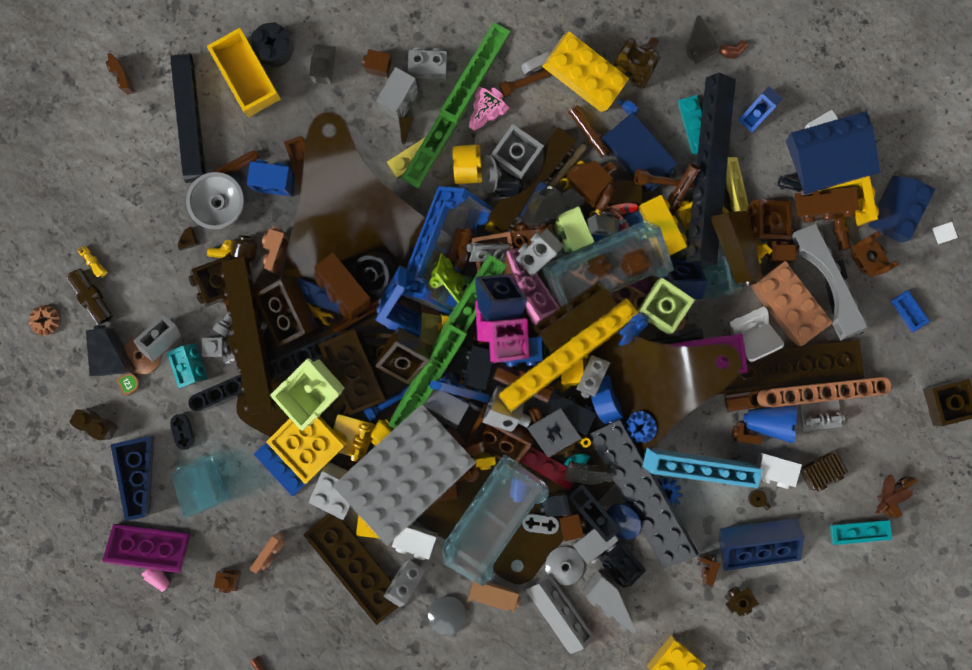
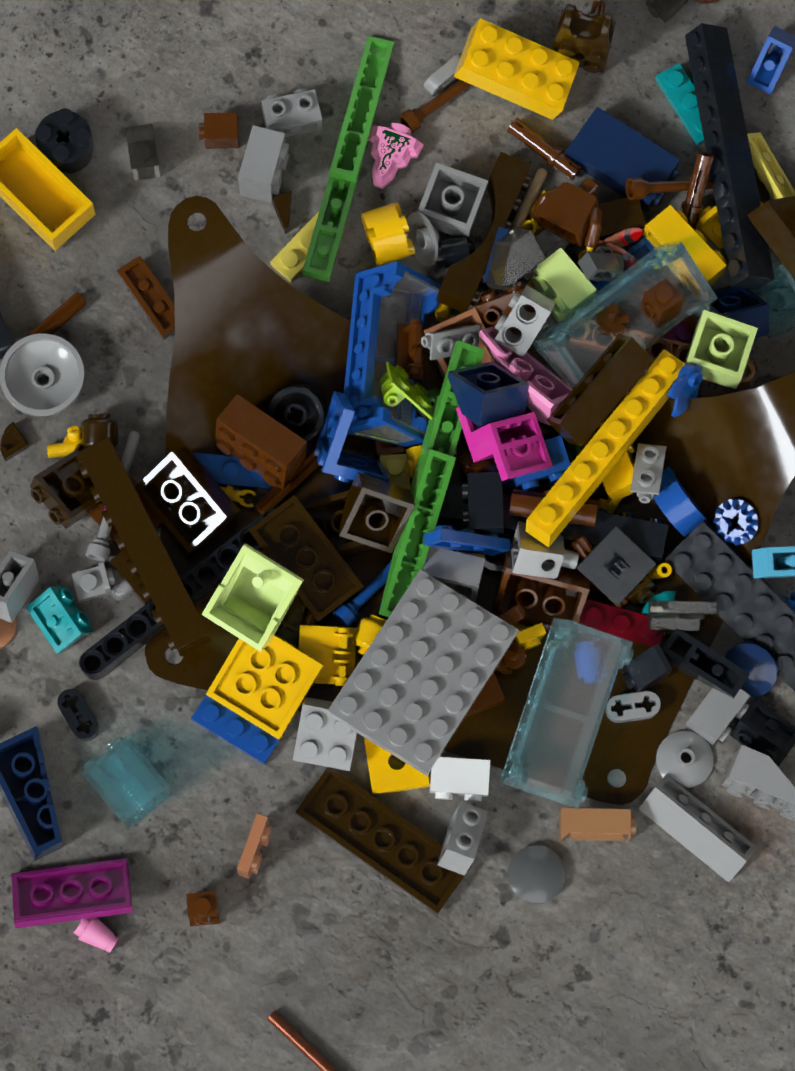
camera: 25 degrees left, 10 degrees down
(270, 178) = (115, 323): blue brick -> none
(277, 244) = (146, 412): nougat plate -> none
(571, 526) = (677, 695): reddish brown brick -> none
(628, 106) = (589, 101): blue piece -> none

